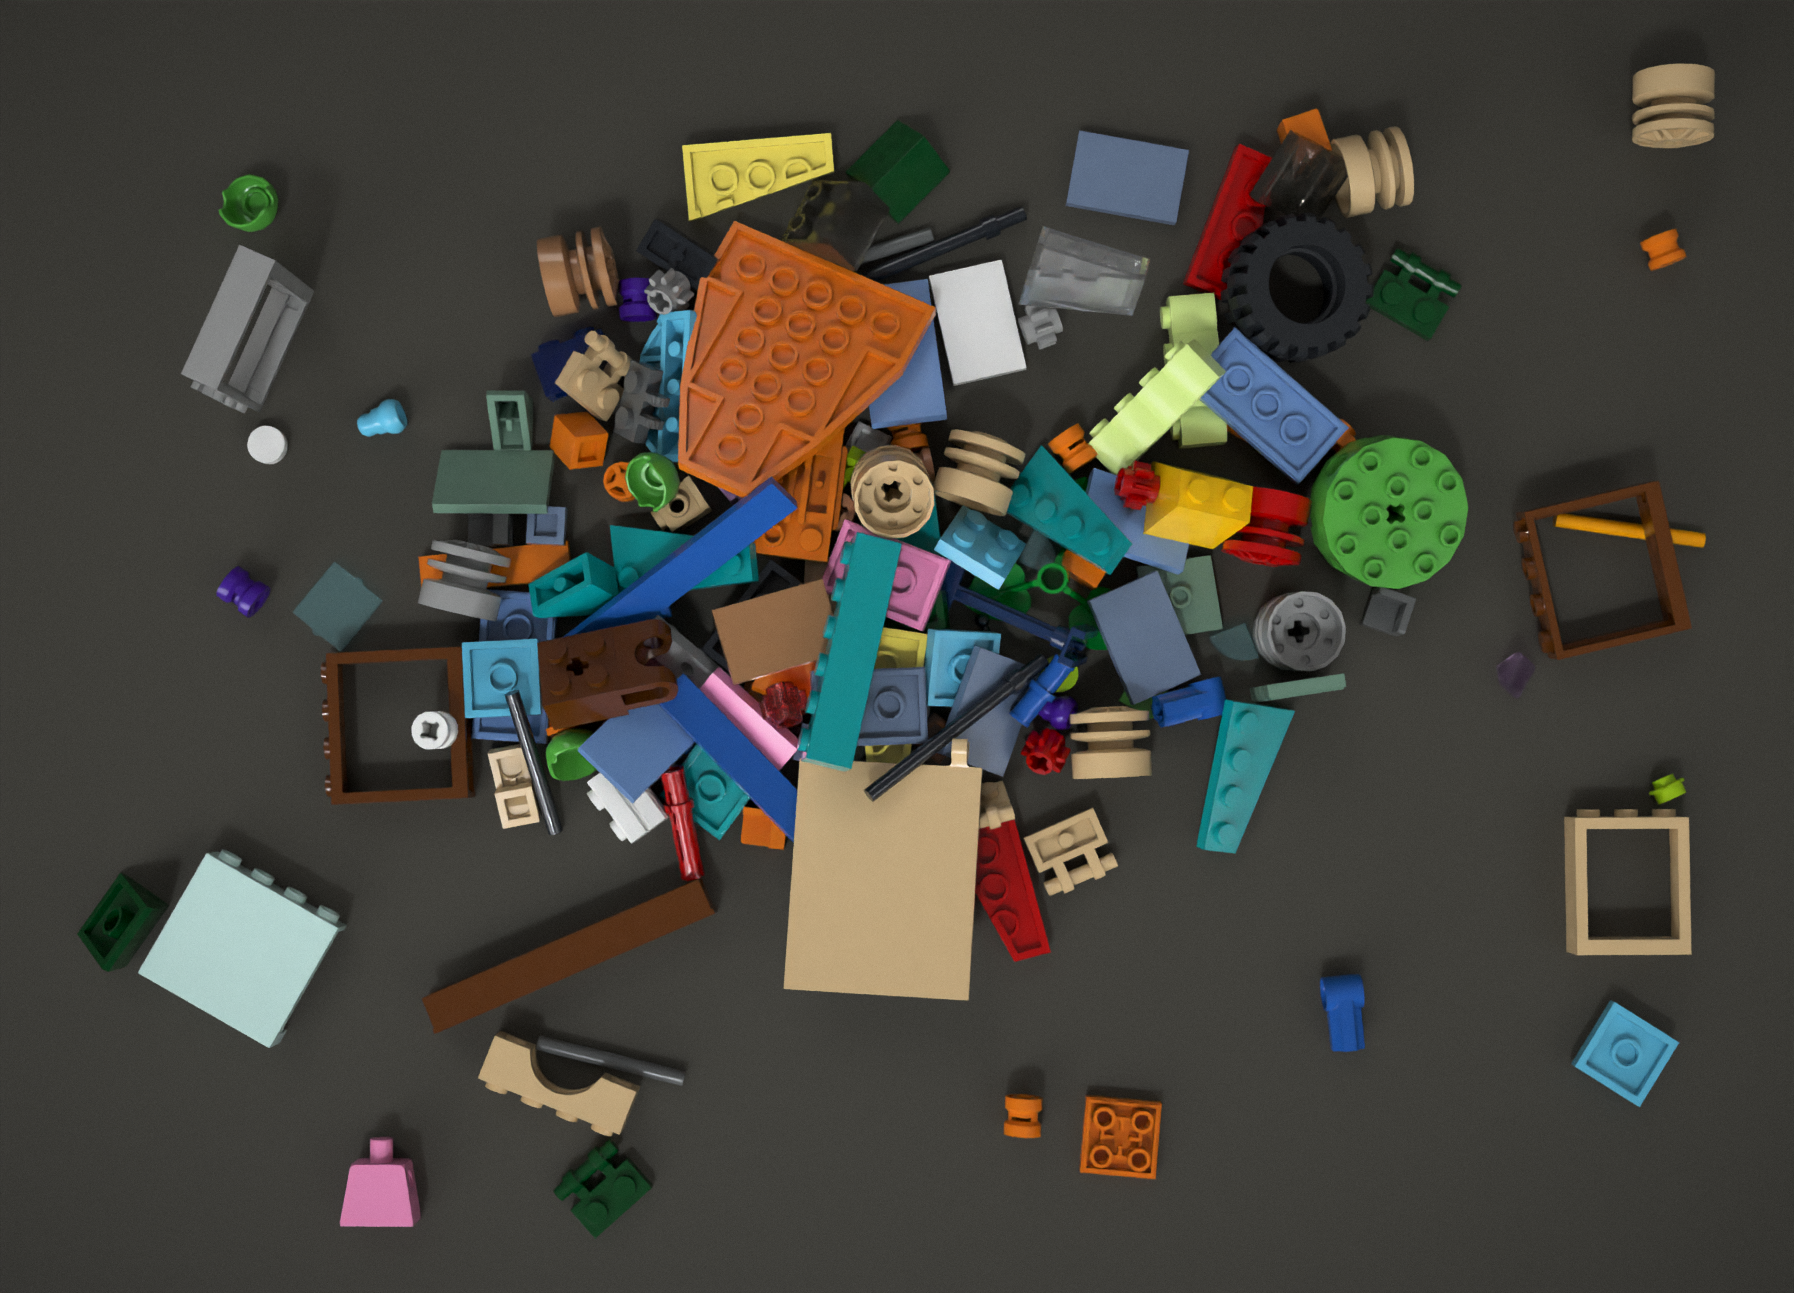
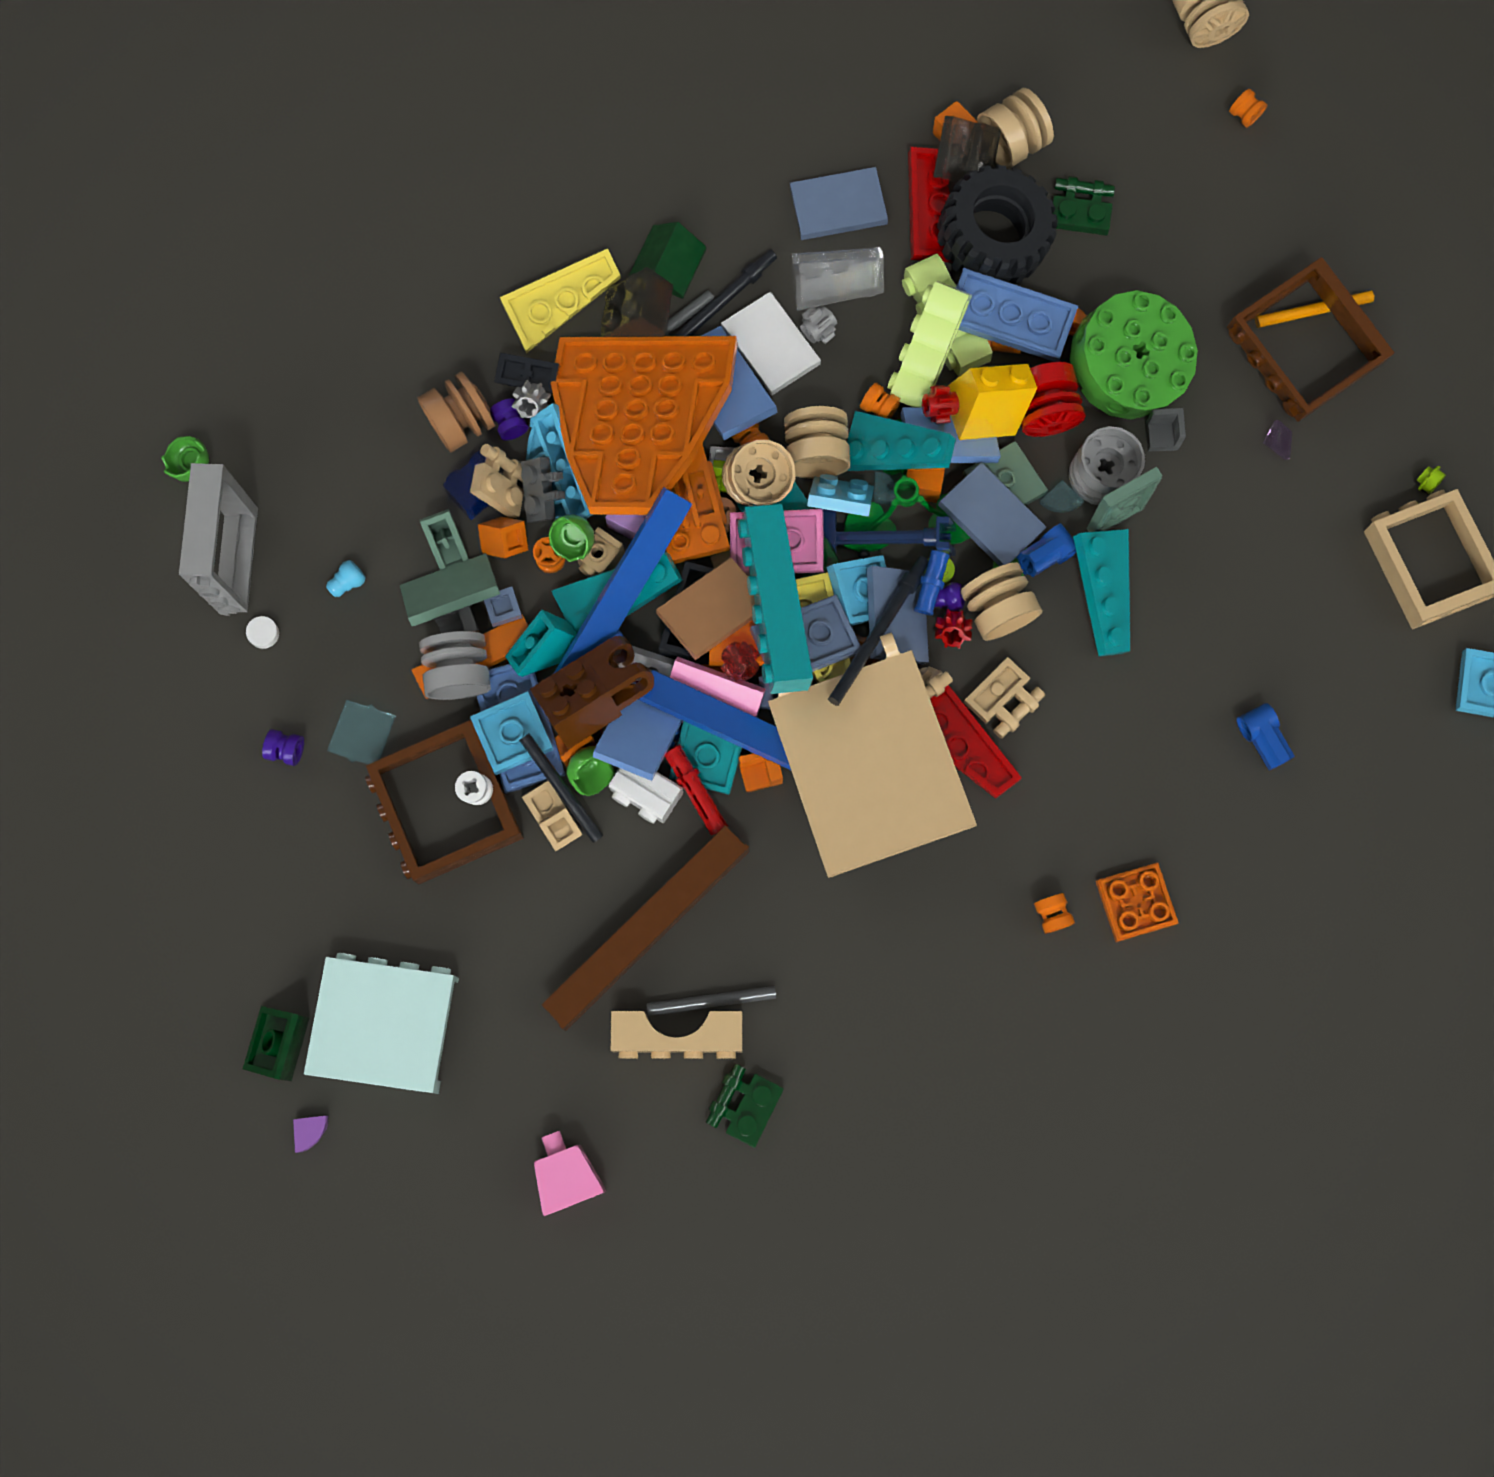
camera: 20 degrees left, 10 degrees down
(124, 1030) = (308, 1132): none -> medium lavender tile

